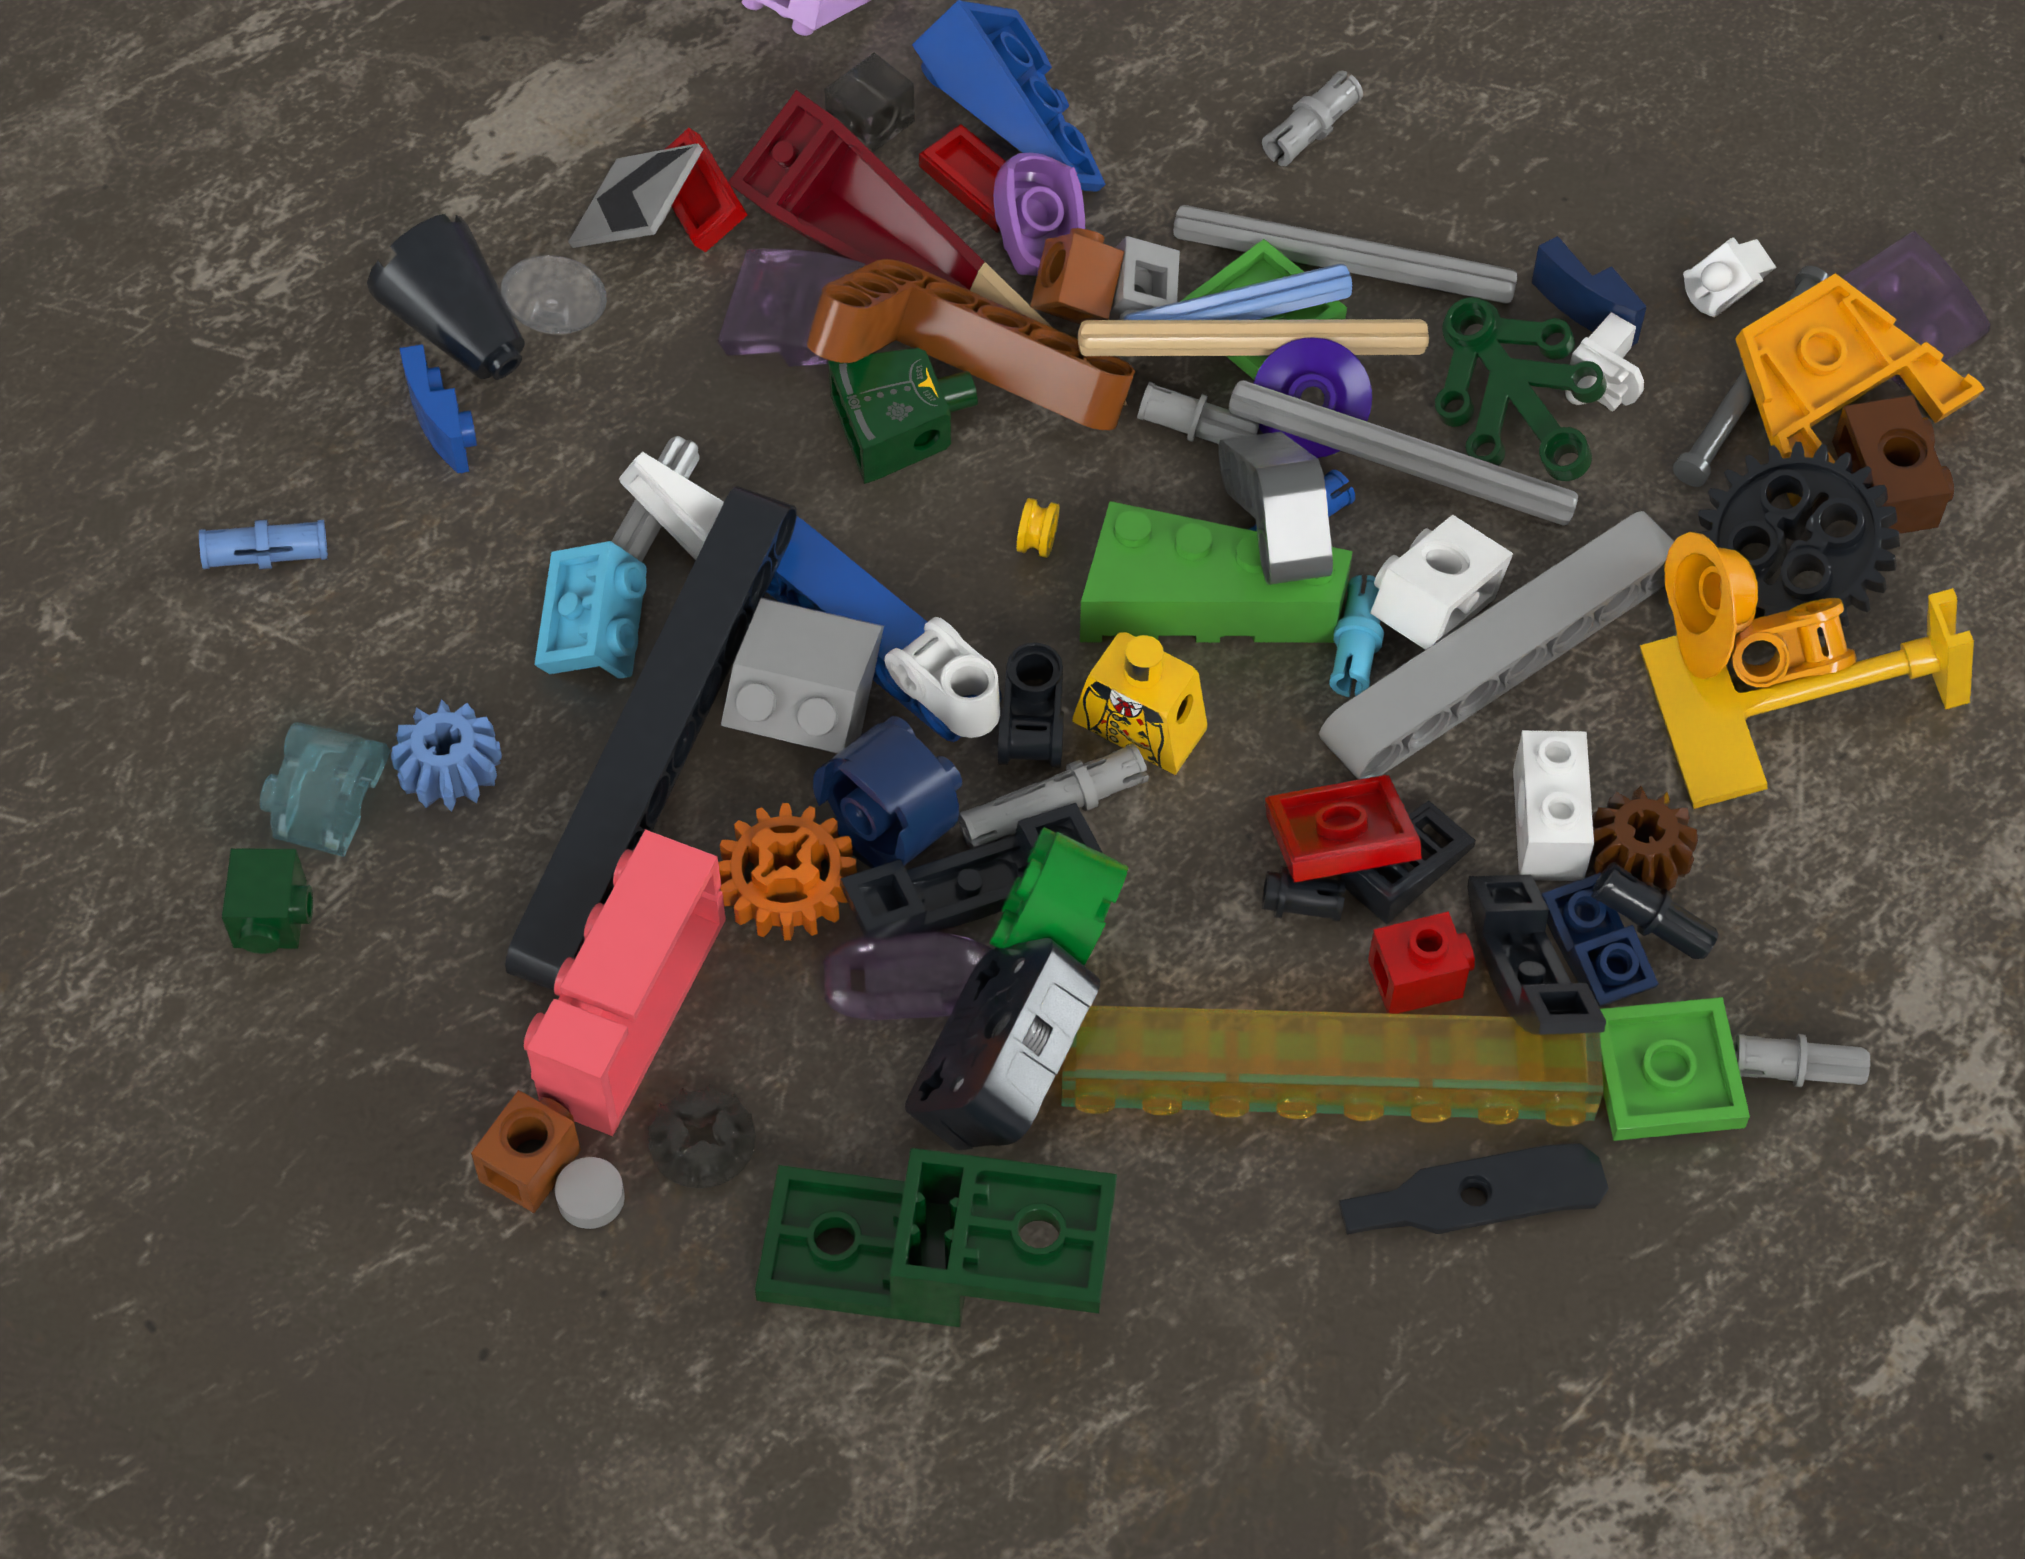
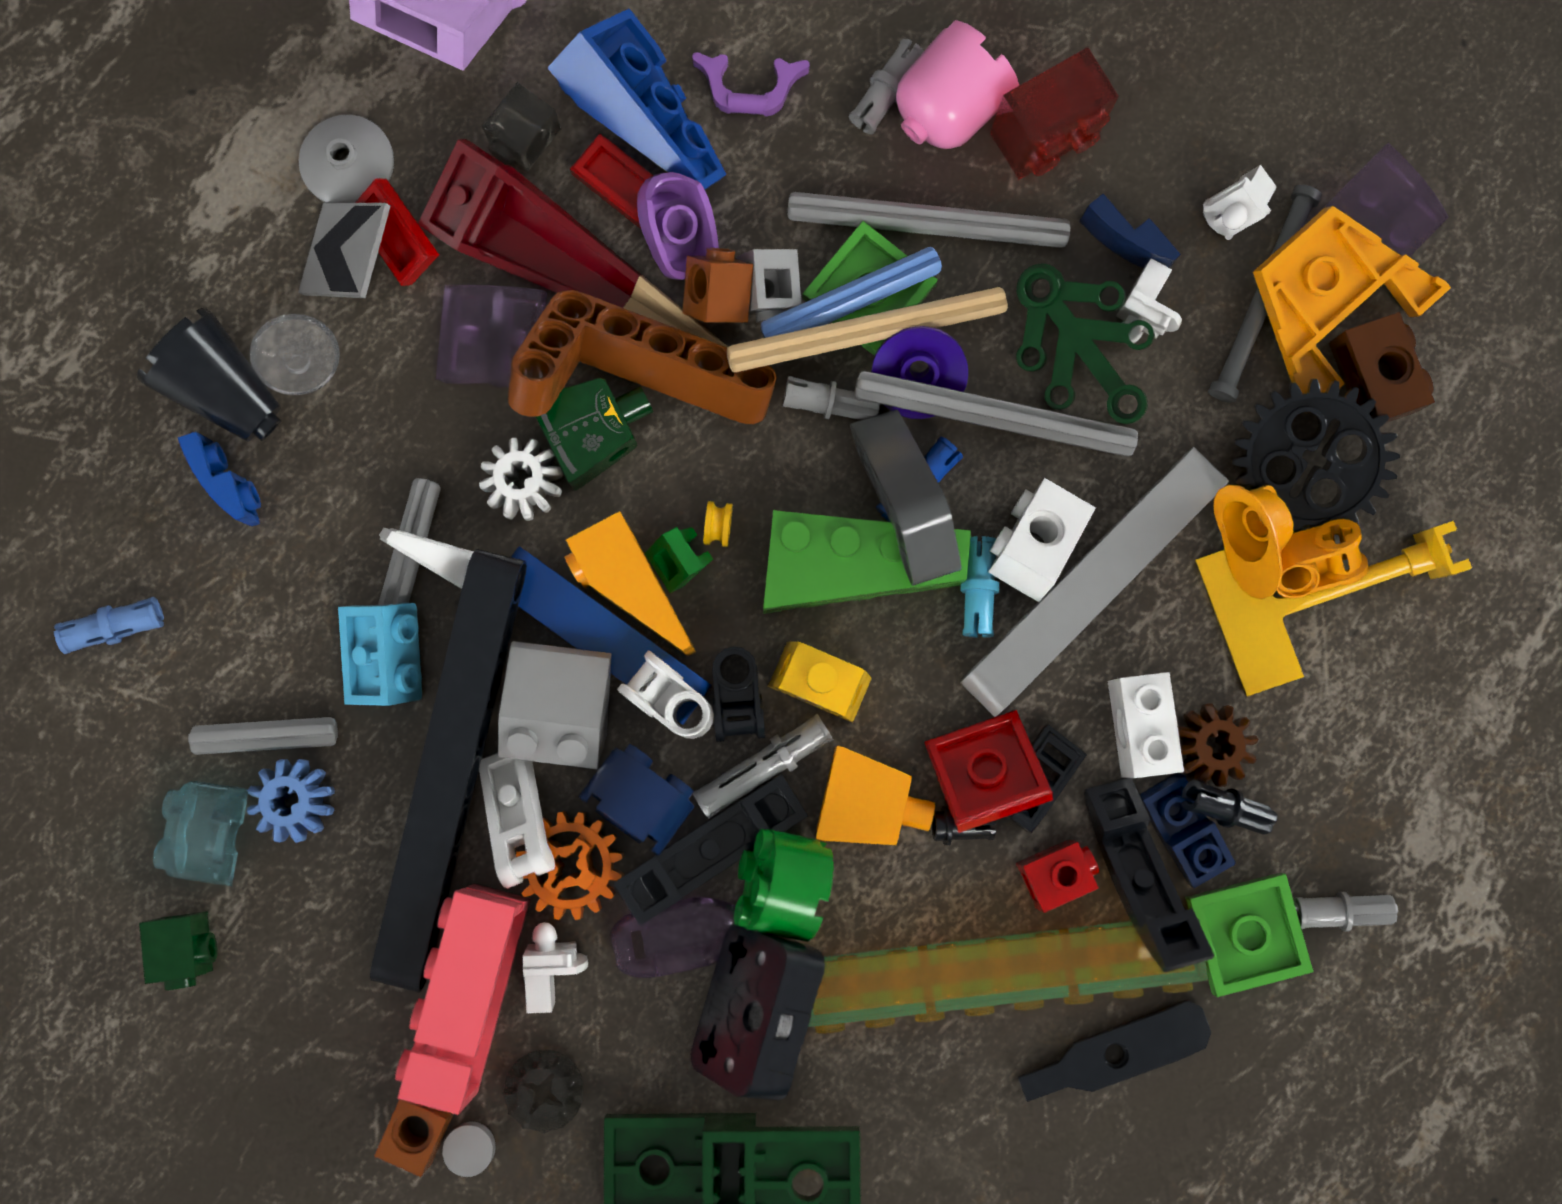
camera: 10 degrees left, 25 degrees up
(425, 687) = (263, 735): none -> light grey axle
(649, 116) = (344, 180): none -> light grey dish
(729, 793) = (514, 819): none -> white plate
(733, 976) = (544, 961): none -> white piece
(802, 451) = (507, 469): none -> white gear
(914, 550) = (616, 567): none -> light orange slope
(980, 557) = (675, 559): none -> green tile
(1155, 120) = (765, 104): none -> medium lavender helmet
(1184, 848) = (868, 802): none -> light orange torso
(1391, 115) = (952, 88): none -> bright pink cylinder
(1505, 153) = (1054, 114): none -> clear red brick

